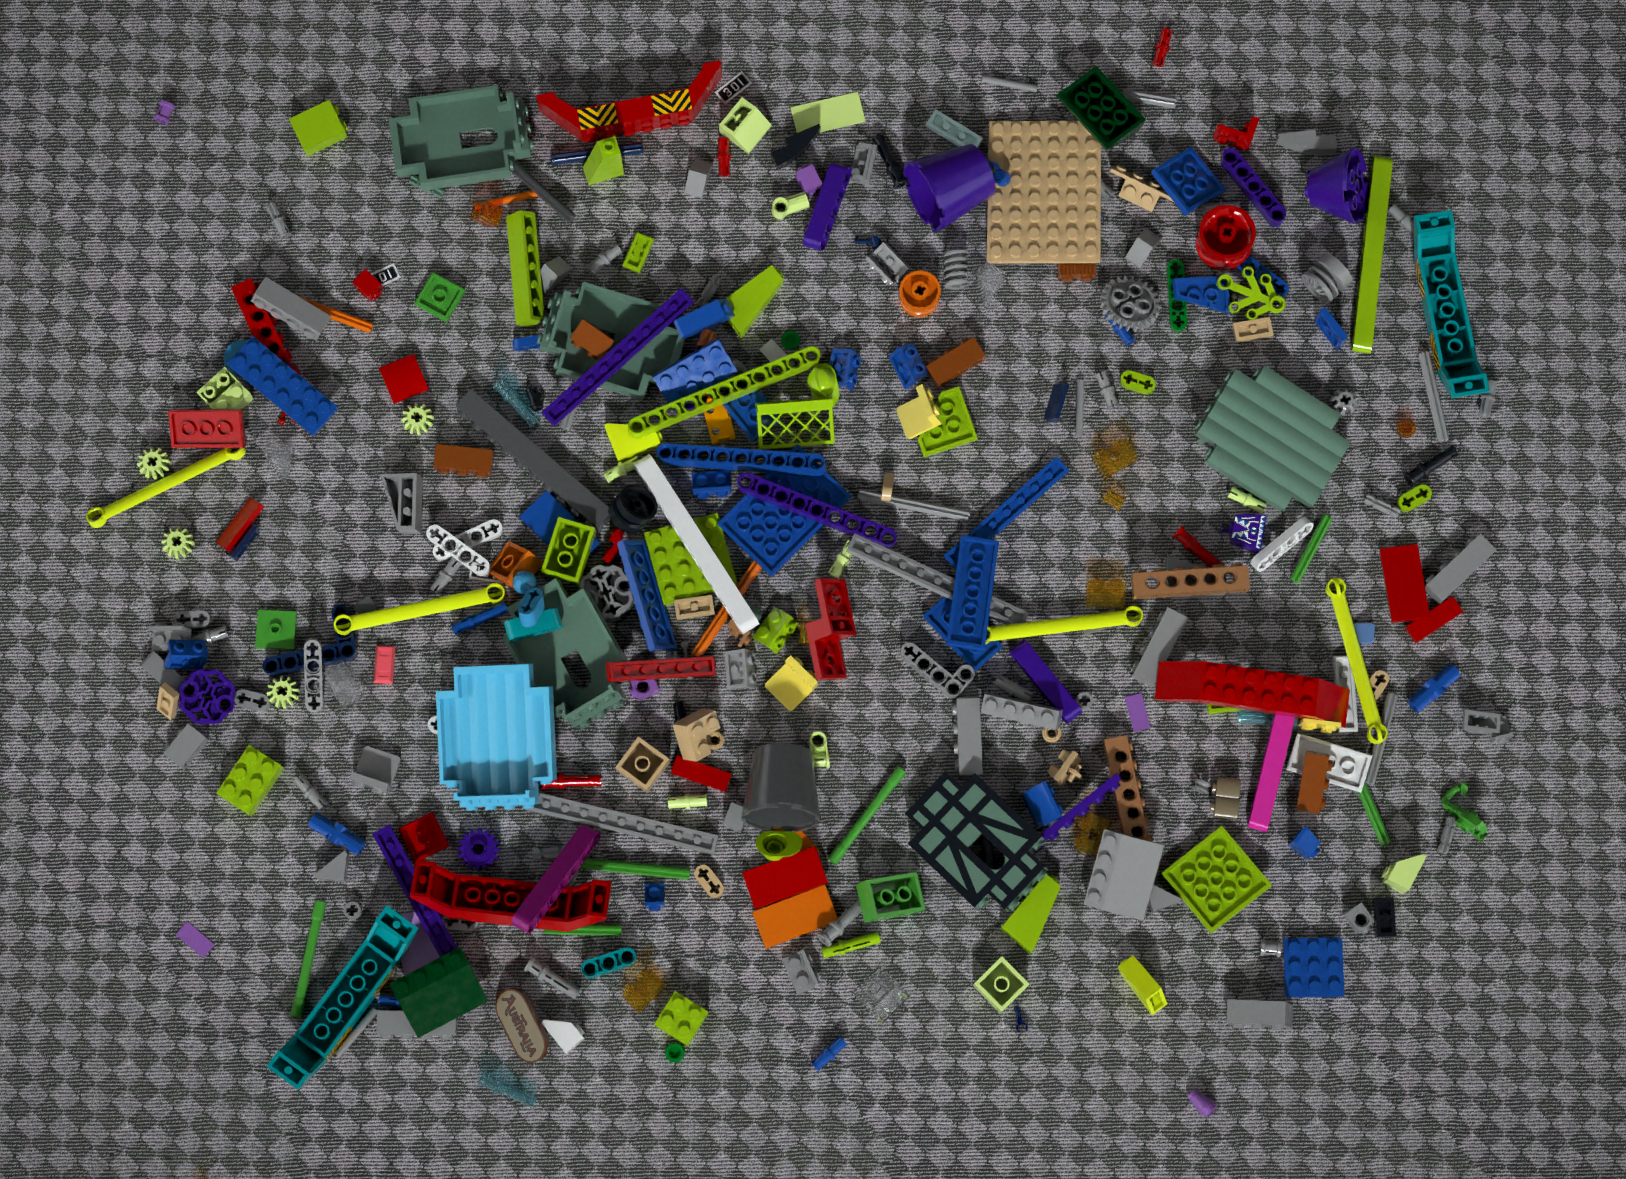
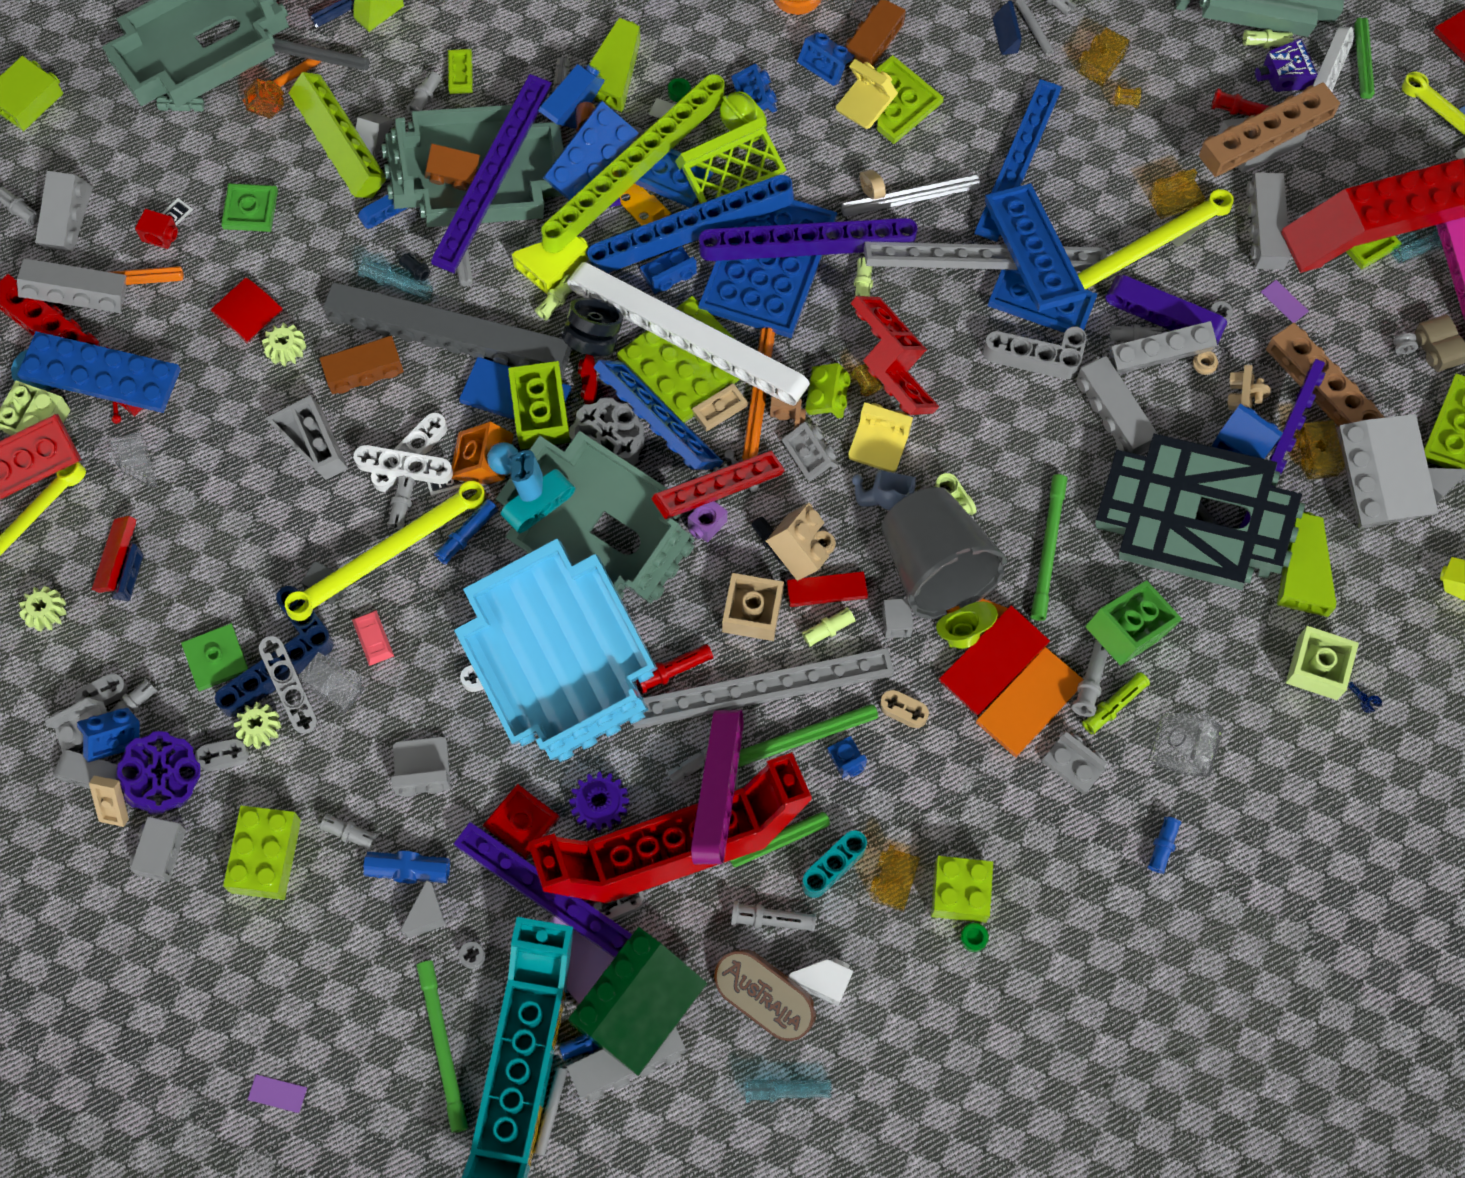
camera: 25 degrees left, 10 degrees down
(307, 242) = (62, 210): none -> light grey wedge
(779, 725) = (887, 489): none -> sand blue piece

